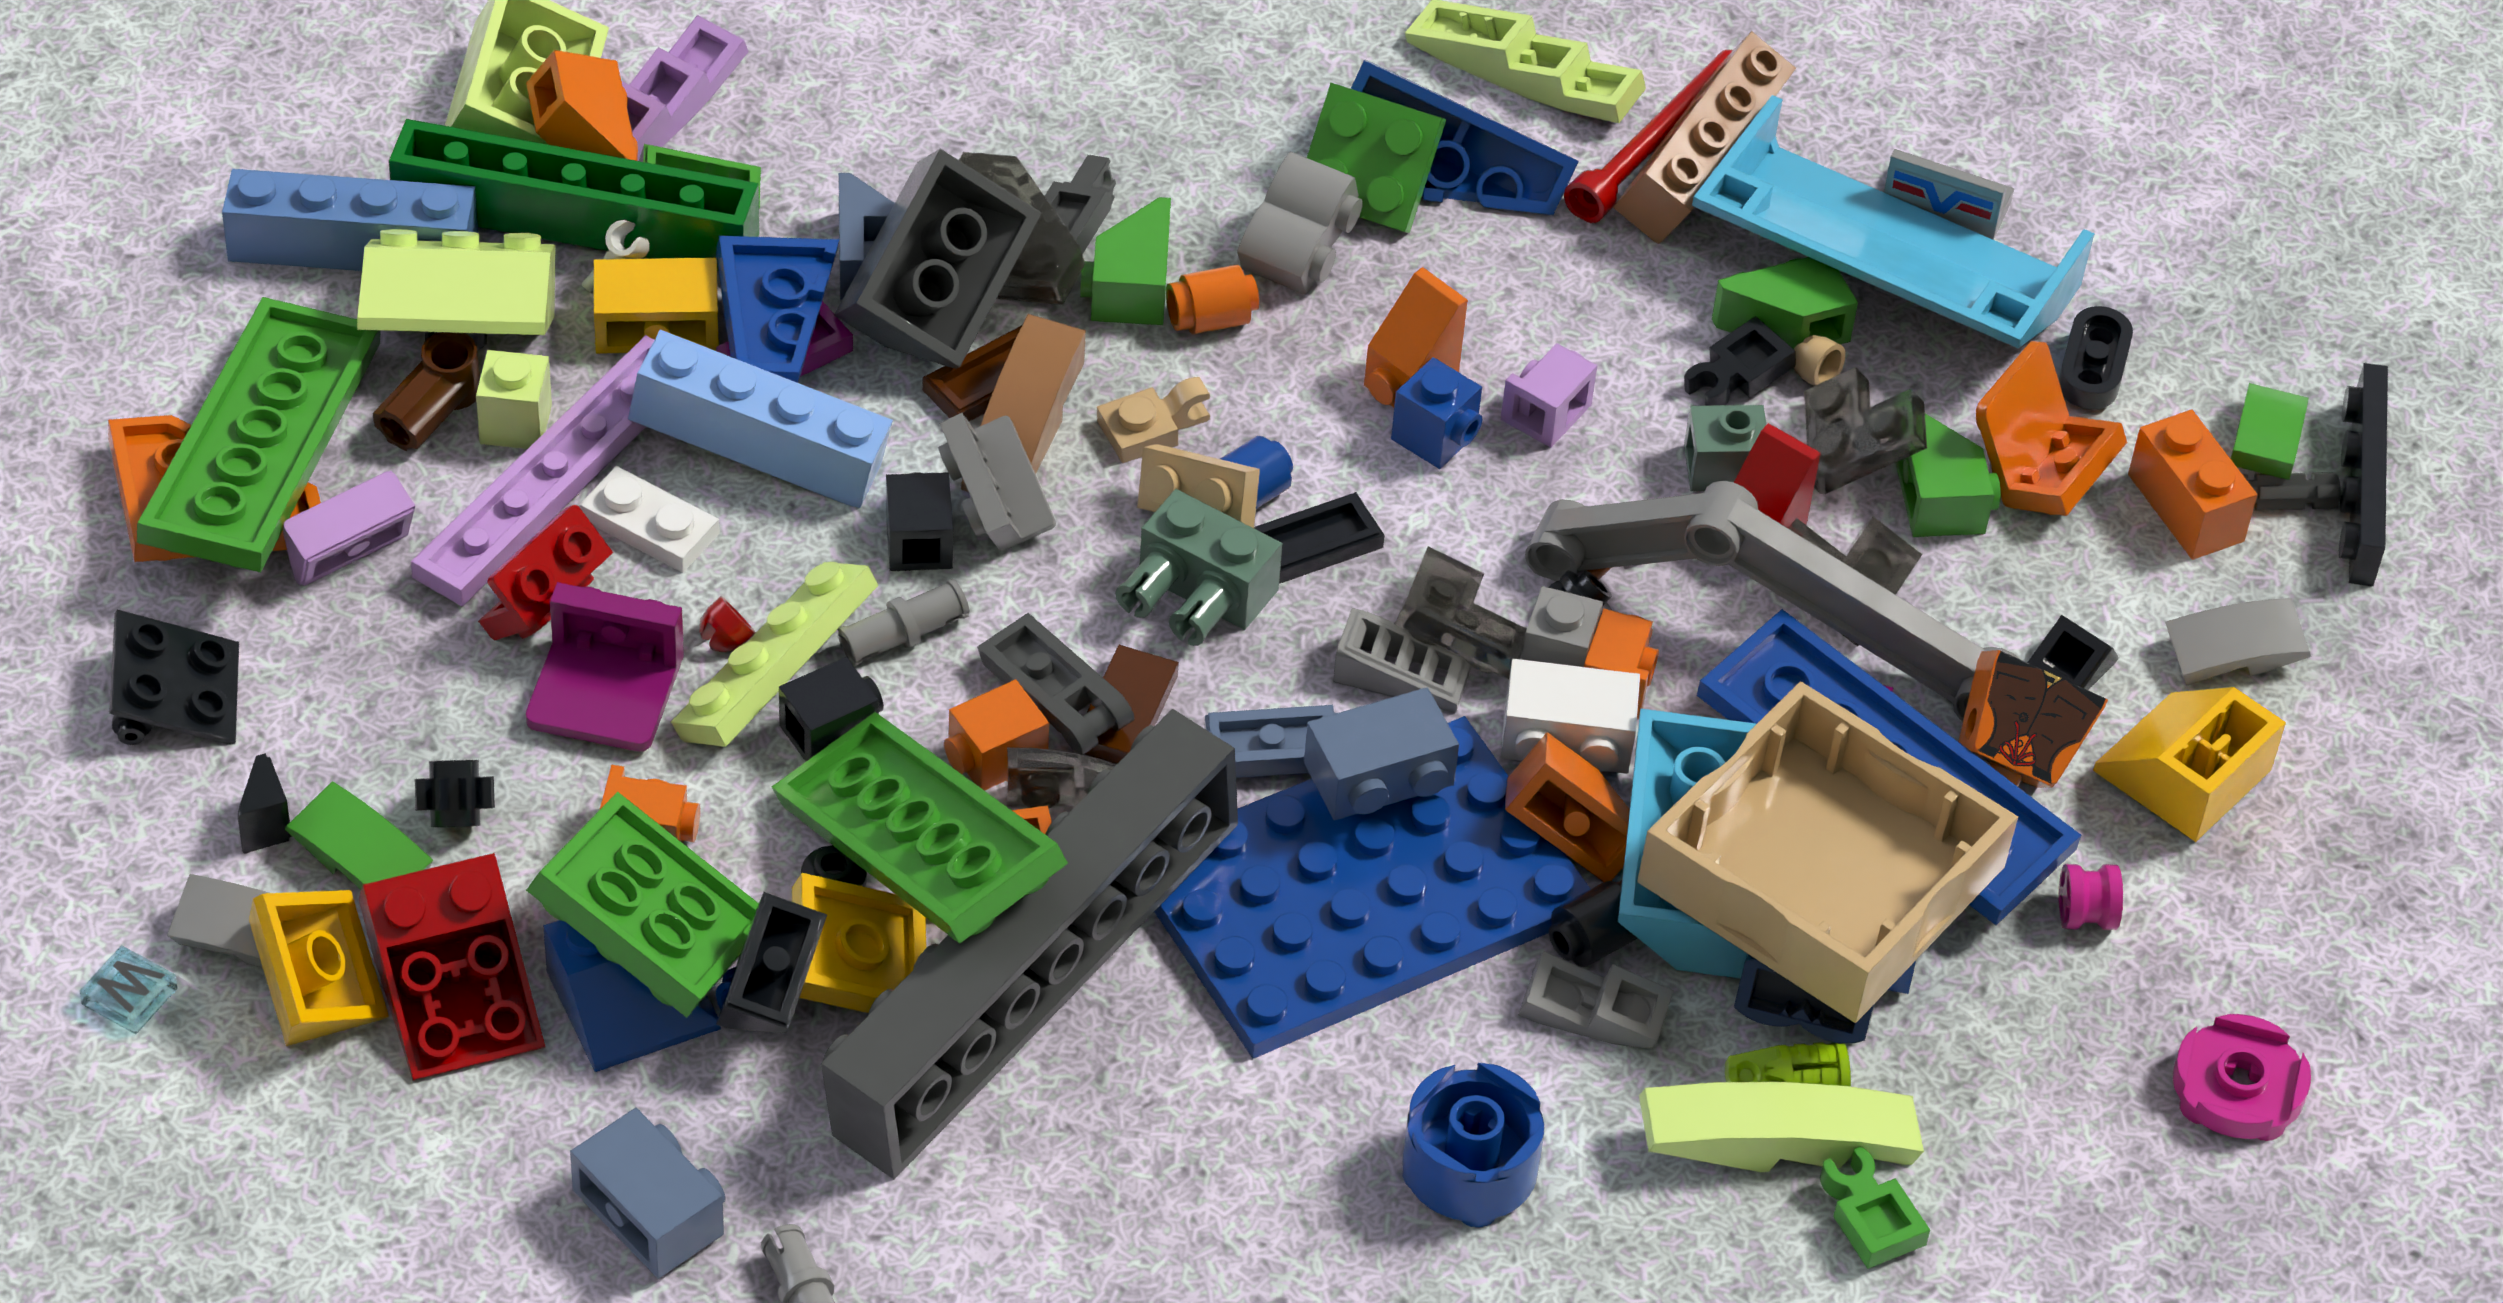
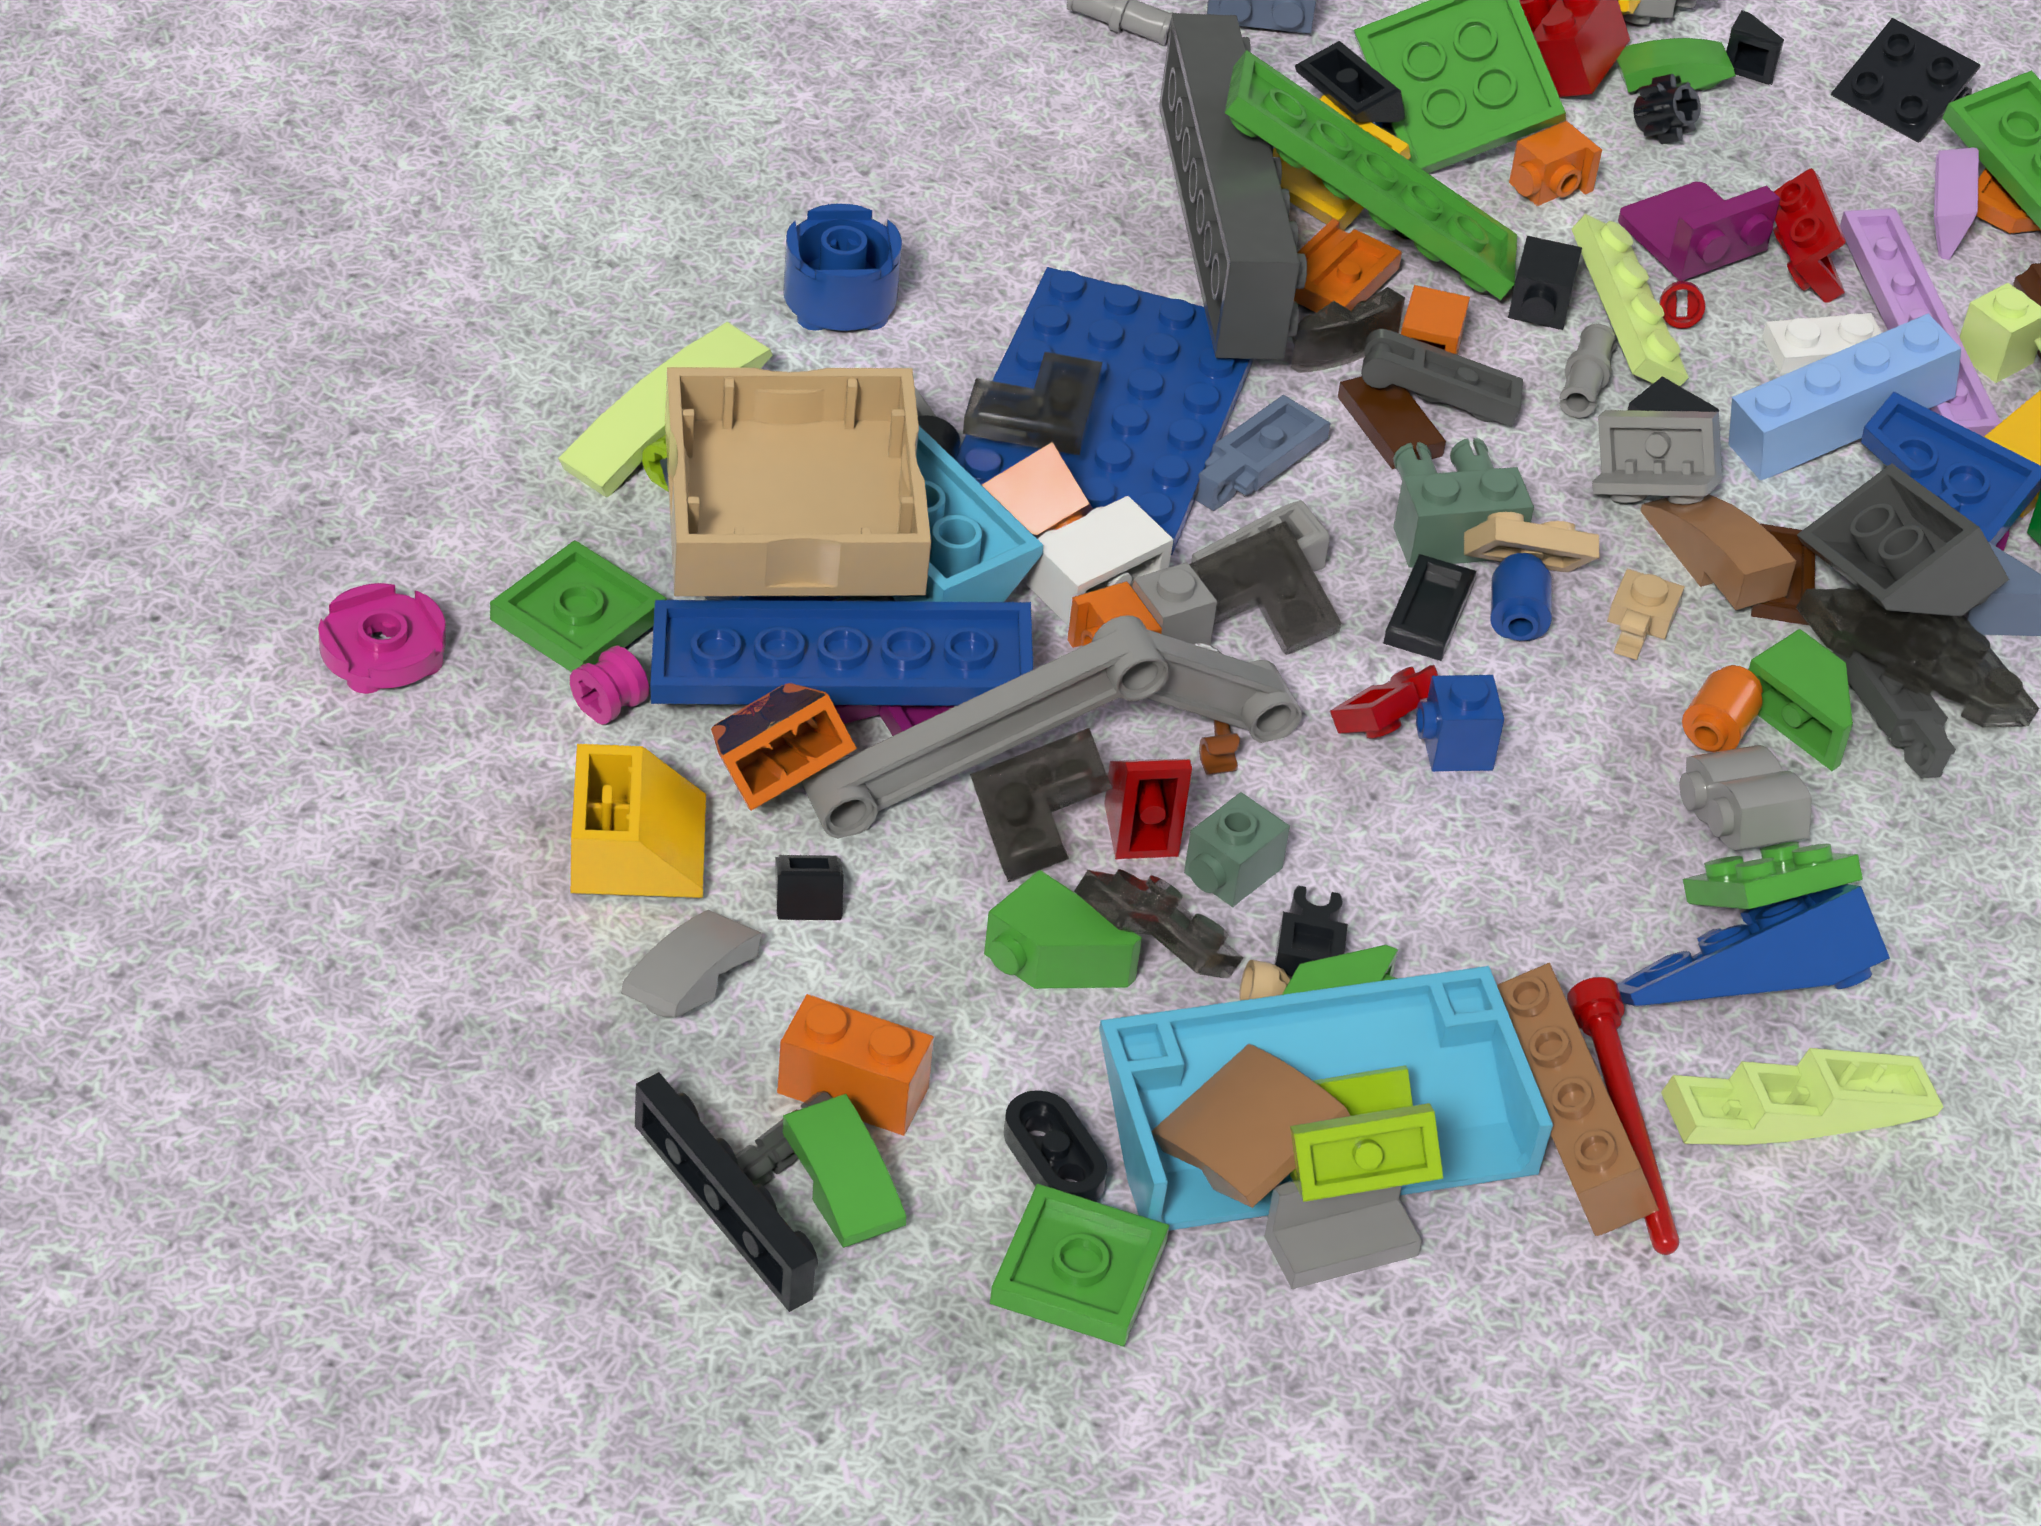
camera: 135 degrees right, 5 degrees down
(1381, 753) = (1171, 415): sand blue brick -> none
(1420, 326) = (1534, 756): orange slope -> none
(1468, 848) = (1051, 412): none -> clear smoke plate
(1476, 475) = (1380, 707): none -> red plate
(1549, 394) = (1409, 803): lavender brick -> none
(1873, 1216) = (550, 399): bright green plate -> none
(1929, 162) = (1374, 1148): none -> lime panel
(1979, 229) = (1242, 1122): none -> medium nougat slope
(2034, 444) = (1008, 1020): orange bracket -> none
(2047, 989) = (576, 607): none -> bright green plate
(2159, 283) = (1079, 1265): none -> bright green plate

